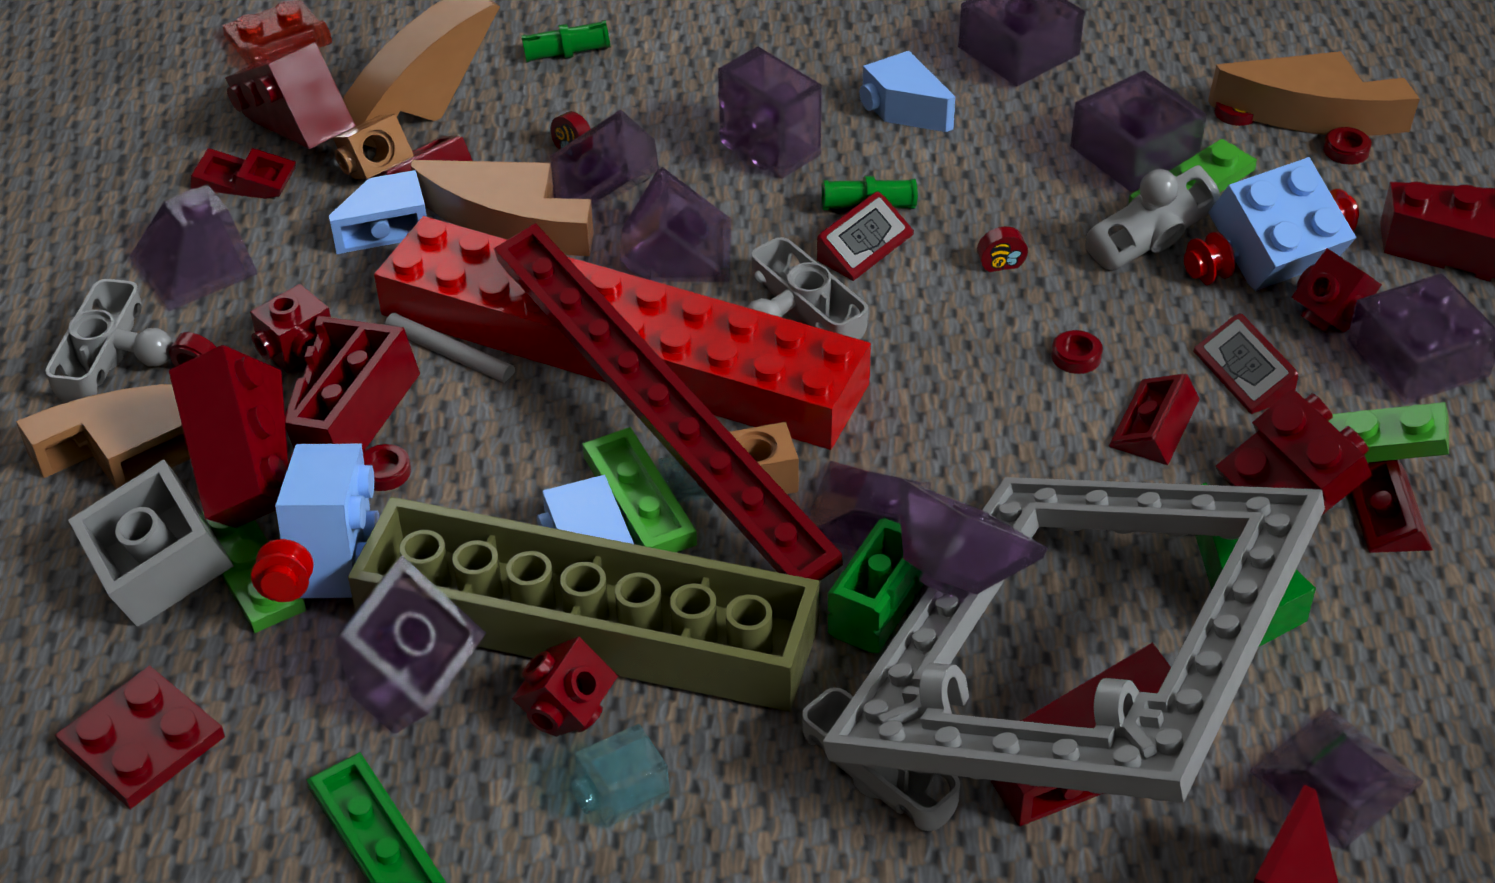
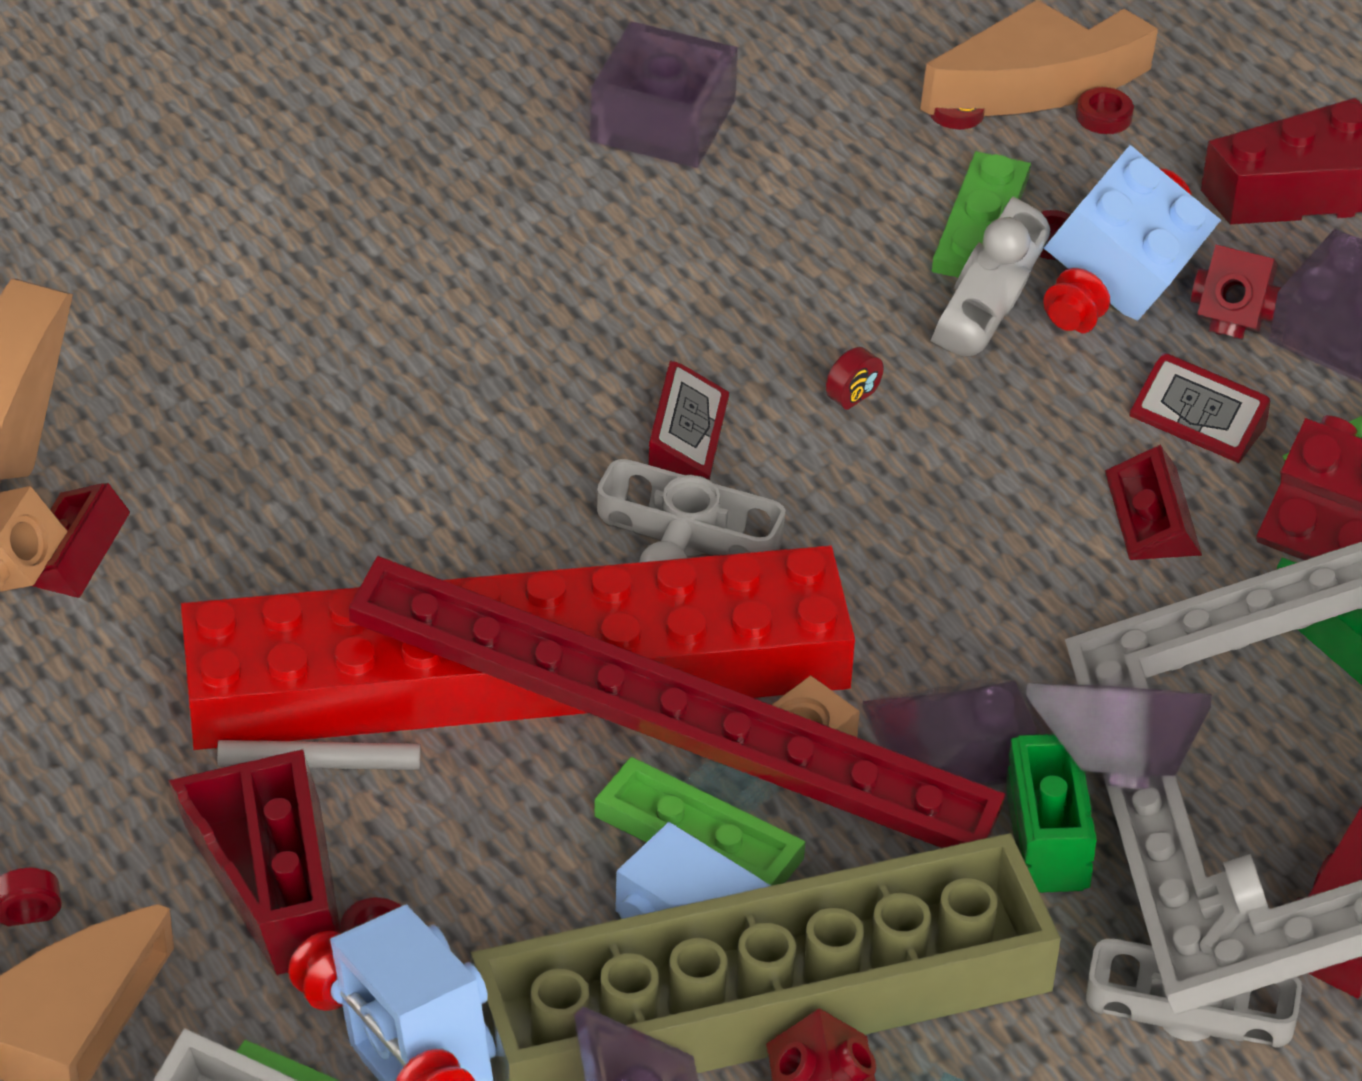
camera: 35 degrees left, 0 degrees up
(233, 432) = (240, 963): dark red wedge -> none
(287, 326) = (127, 810): dark red brick -> none
(378, 213) = (99, 618): light blue slope -> none
(505, 200) = (235, 547): medium nougat slope -> none
(566, 41) = (116, 305): green pin -> none
(567, 128) = (236, 427): dark red tile -> none
(604, 161) = (317, 458): clear purple slope -> none
(676, 235) = (478, 508): clear purple slope -> none
(769, 112) = (473, 308): clear purple brick -> none
(851, 193) = (648, 367): green pin -> none
(907, 93) = (595, 224): light blue slope -> none
(1076, 352) = (1017, 466): dark red tile -> none
(1136, 129) = (892, 176): clear purple brick -> none

